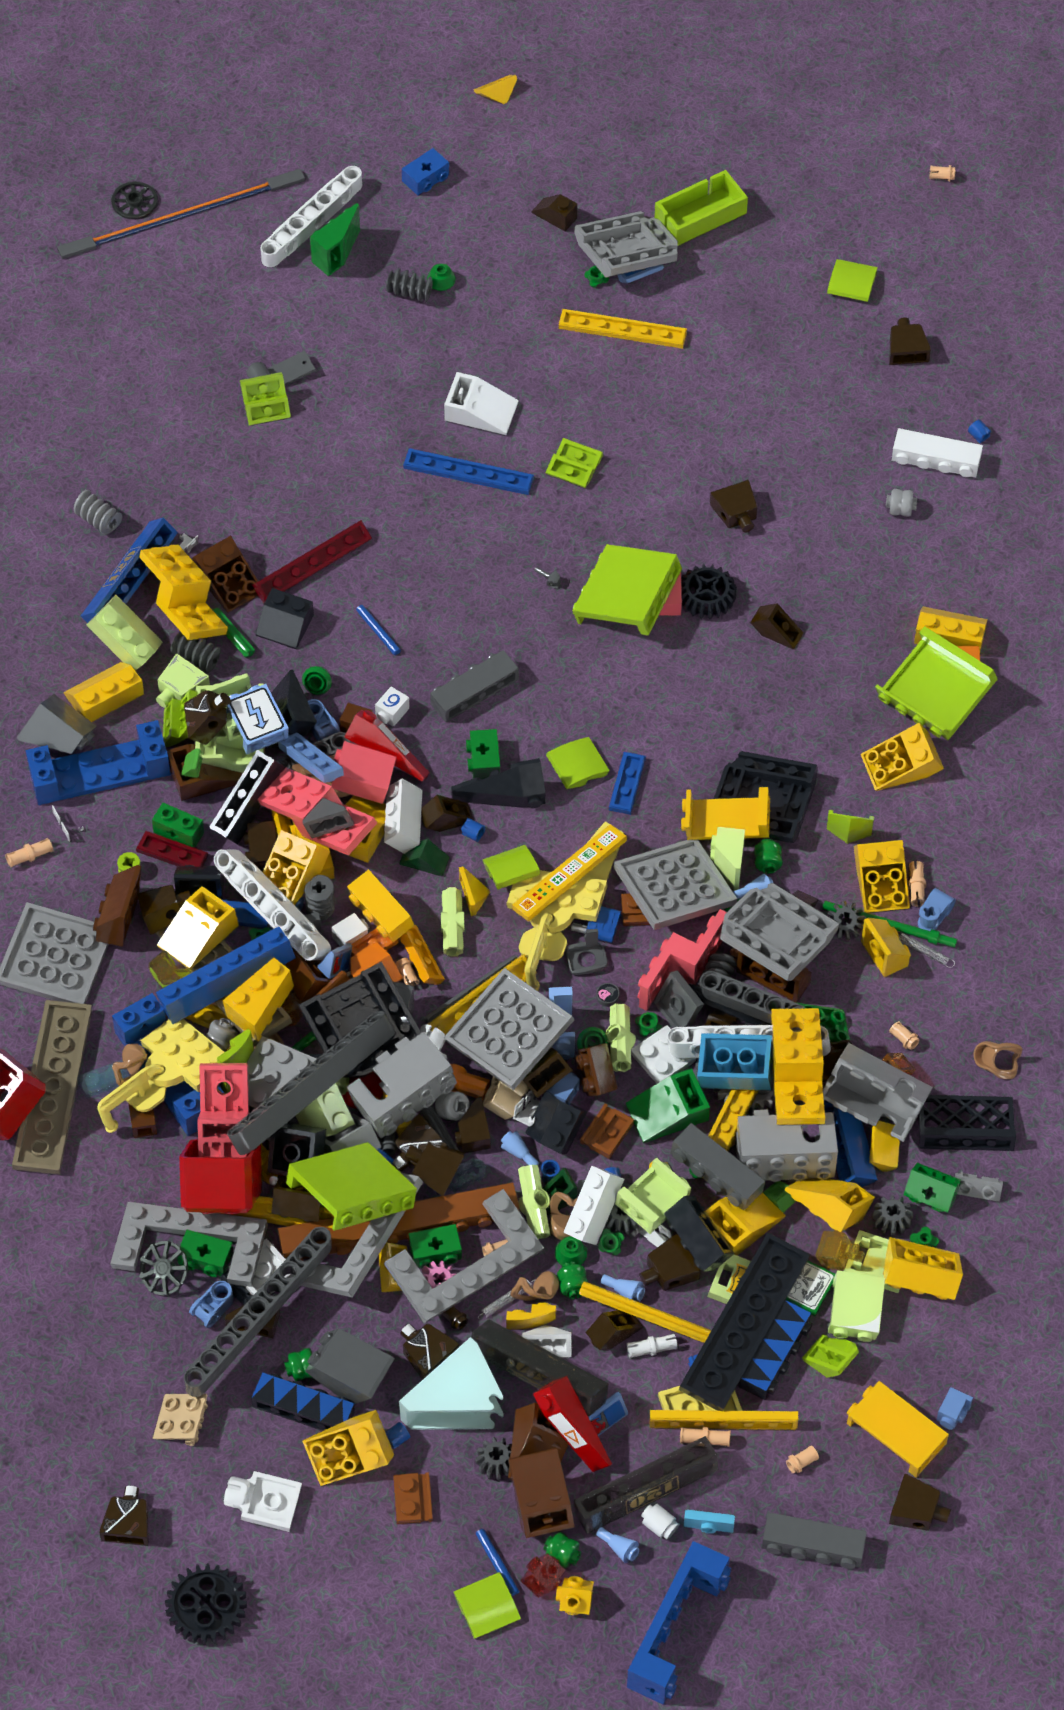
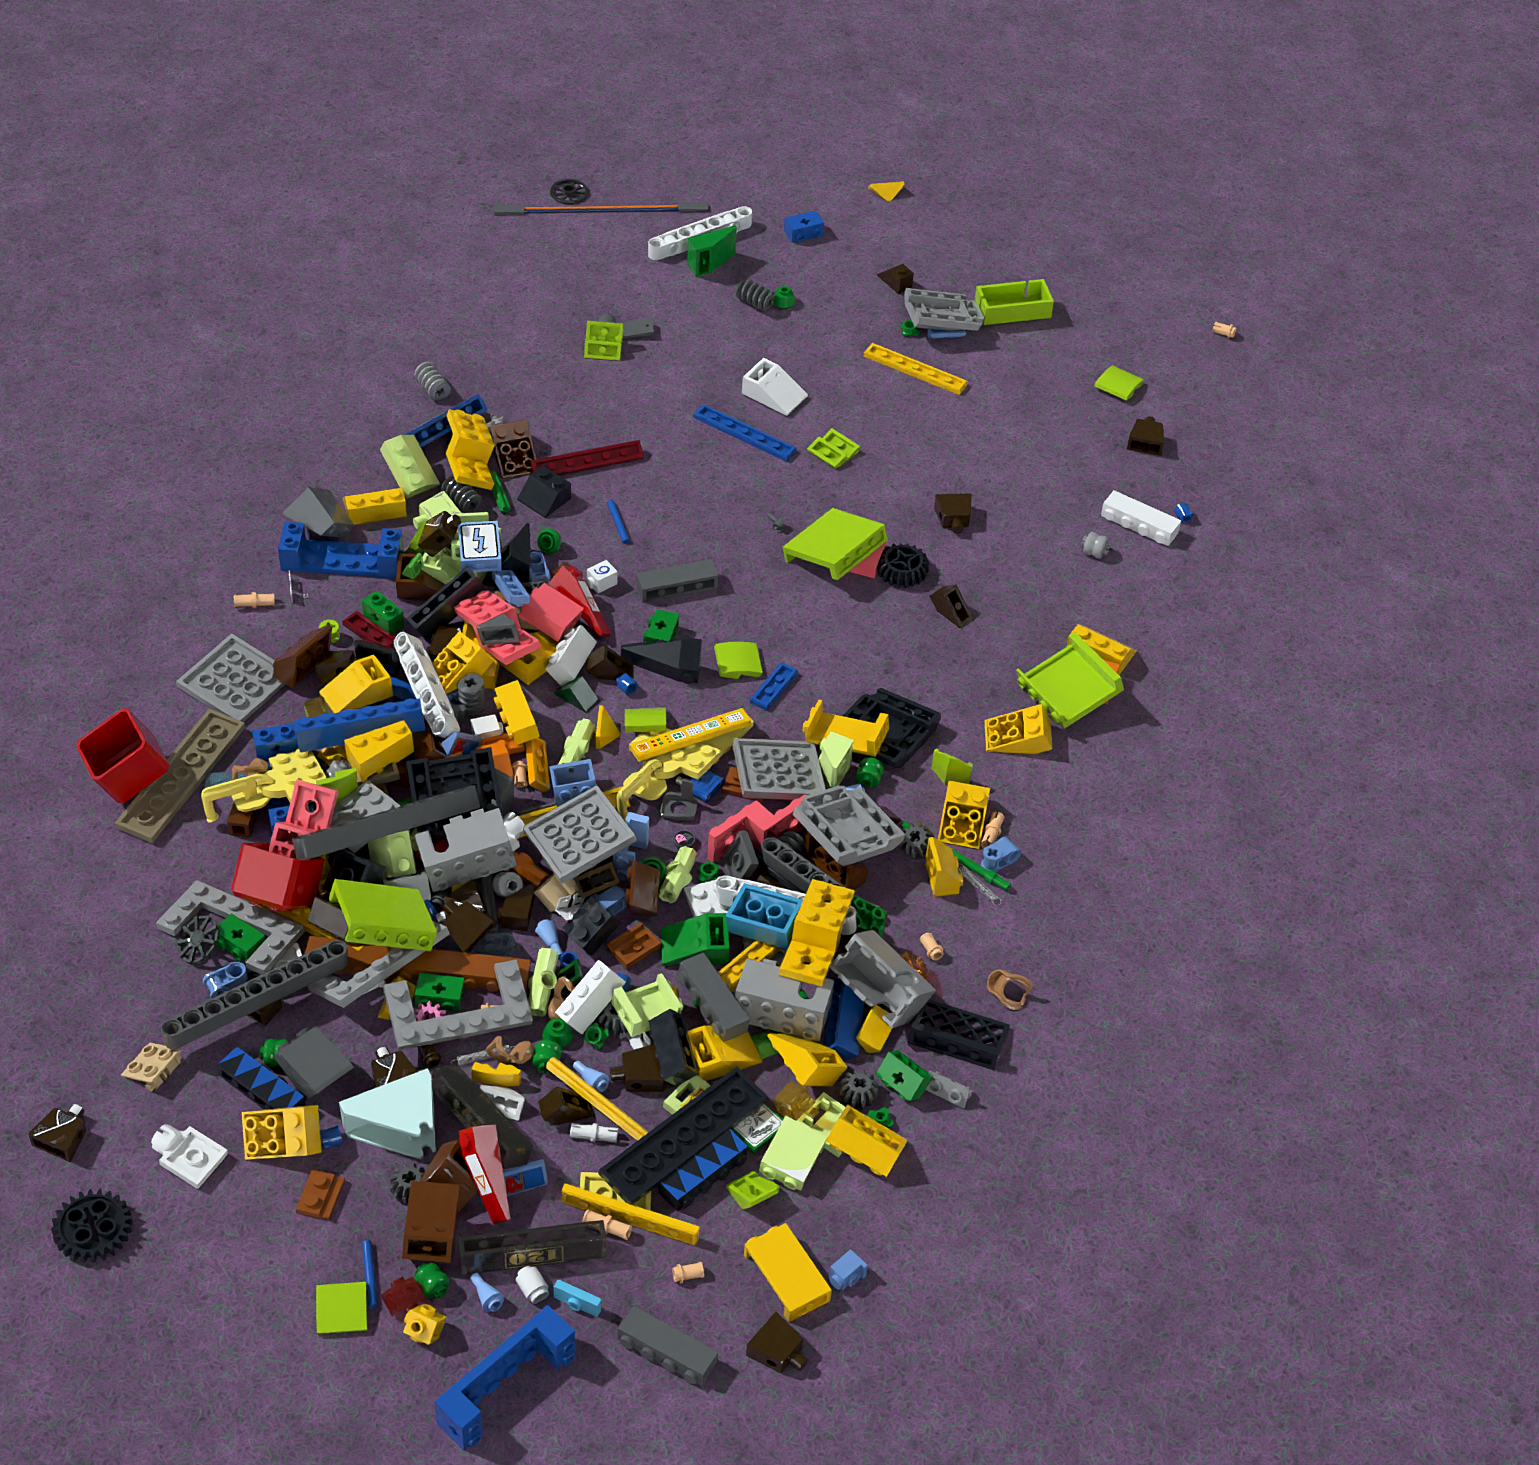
camera: 15 degrees right, 10 degrees down
(474, 950) = (564, 780): none -> medium blue window

